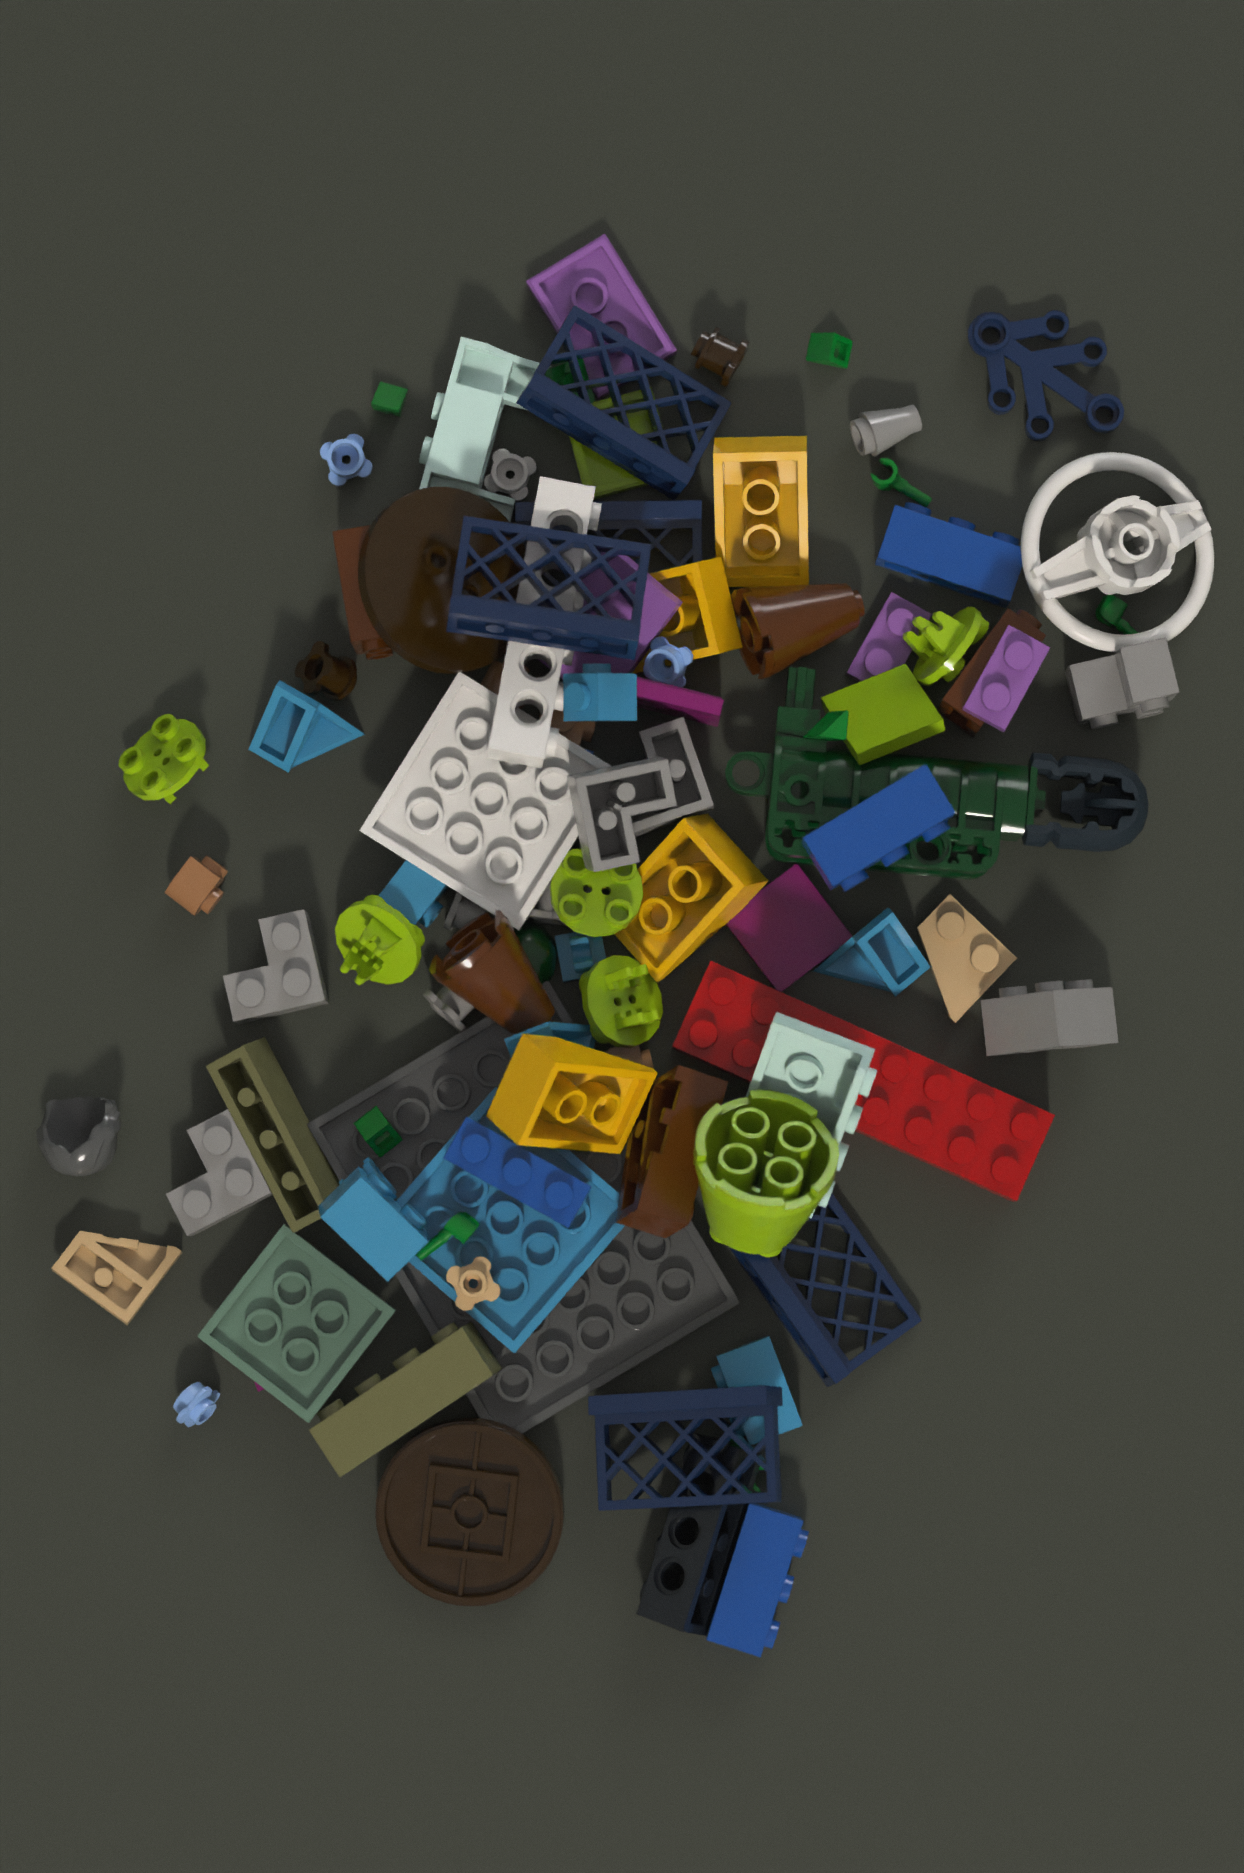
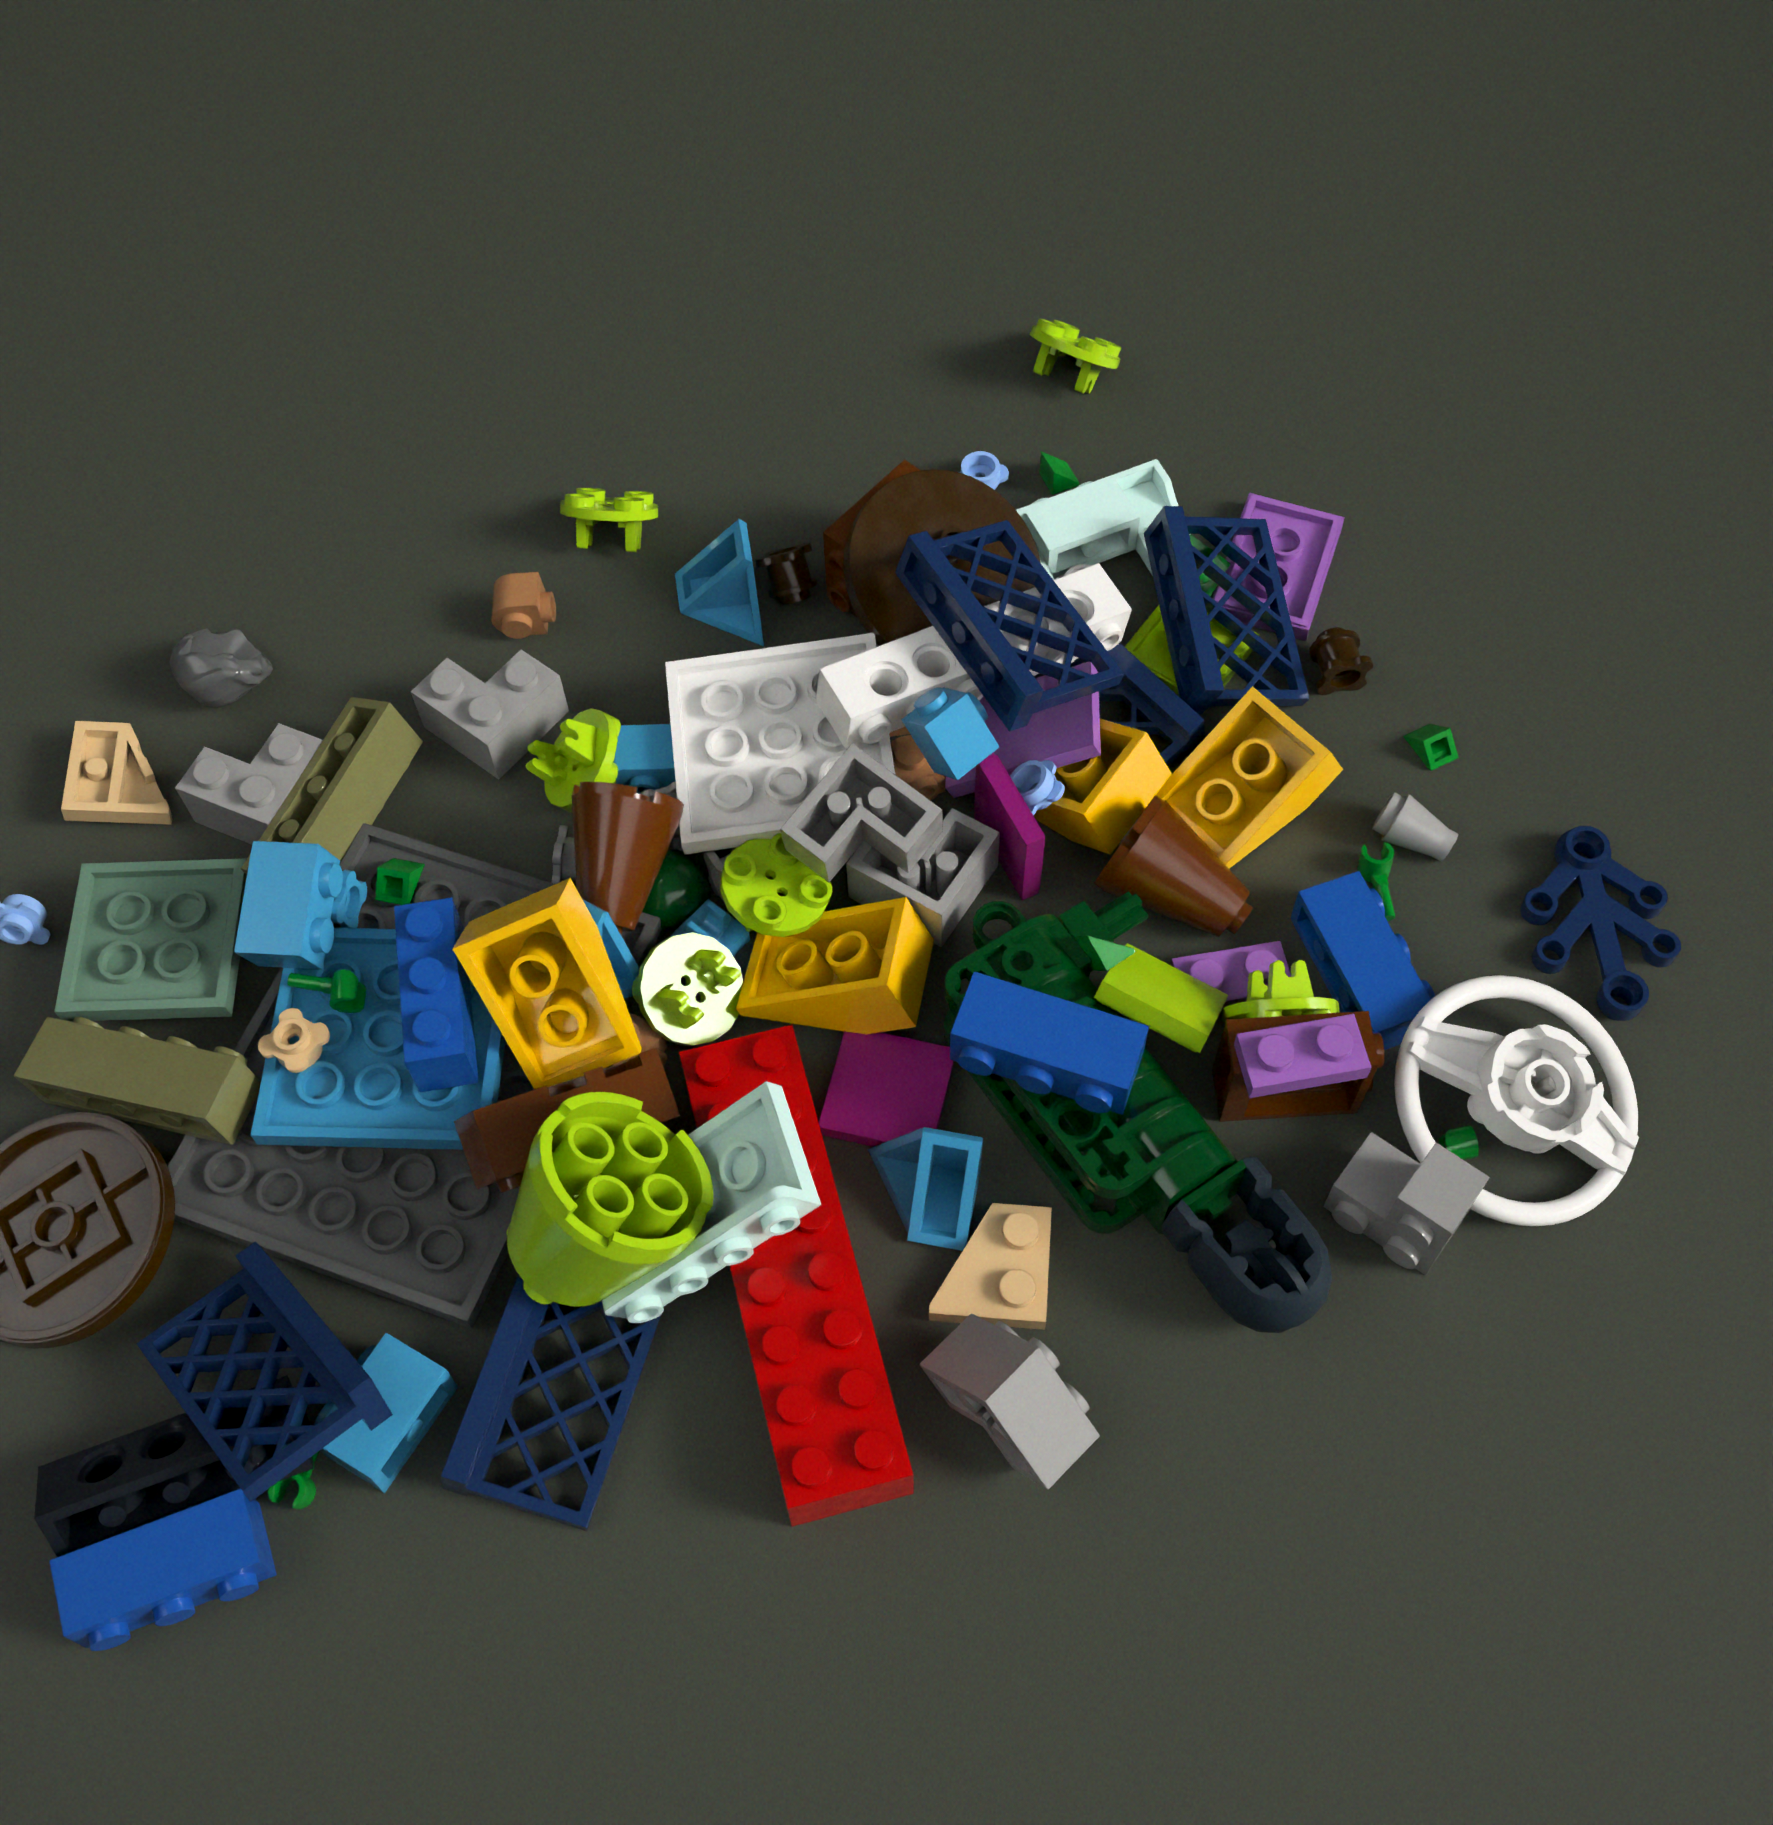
camera: 50 degrees right, 25 degrees down
(293, 291) = (1062, 339): none -> lime plate

